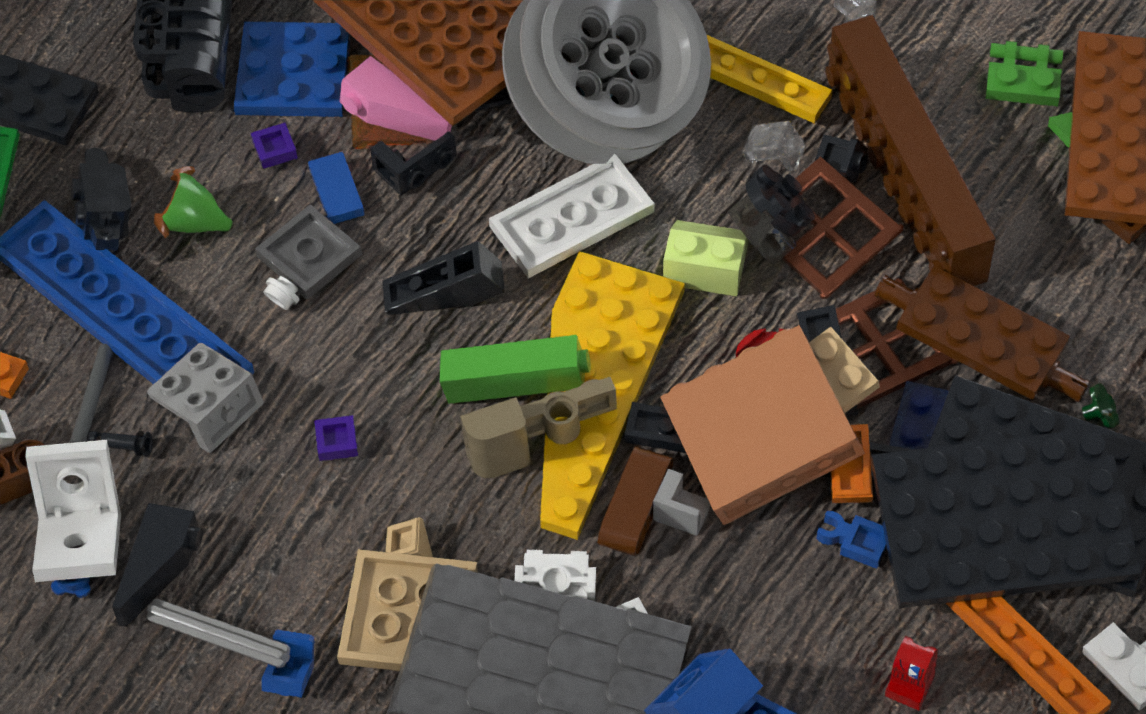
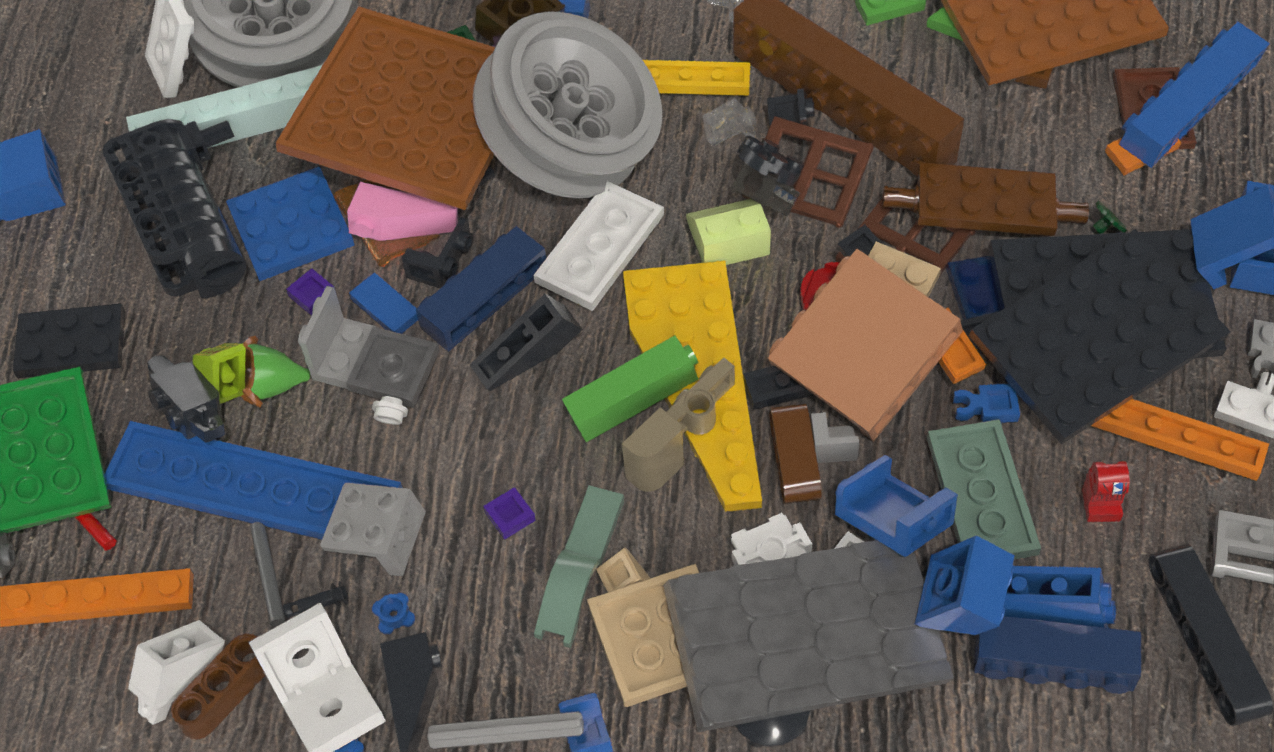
camera: 25 degrees left, 0 degrees up
(147, 187) = (223, 369): none -> lime slope
(181, 473) = (389, 603): none -> blue plate
(262, 199) = (331, 341): none -> light grey bracket
(363, 513) = (577, 563): none -> sand green piece
(432, 210) = (480, 288): none -> dark blue brick
(691, 593) = (893, 510): none -> blue panel
(796, 618) = (990, 498): none -> sand green plate

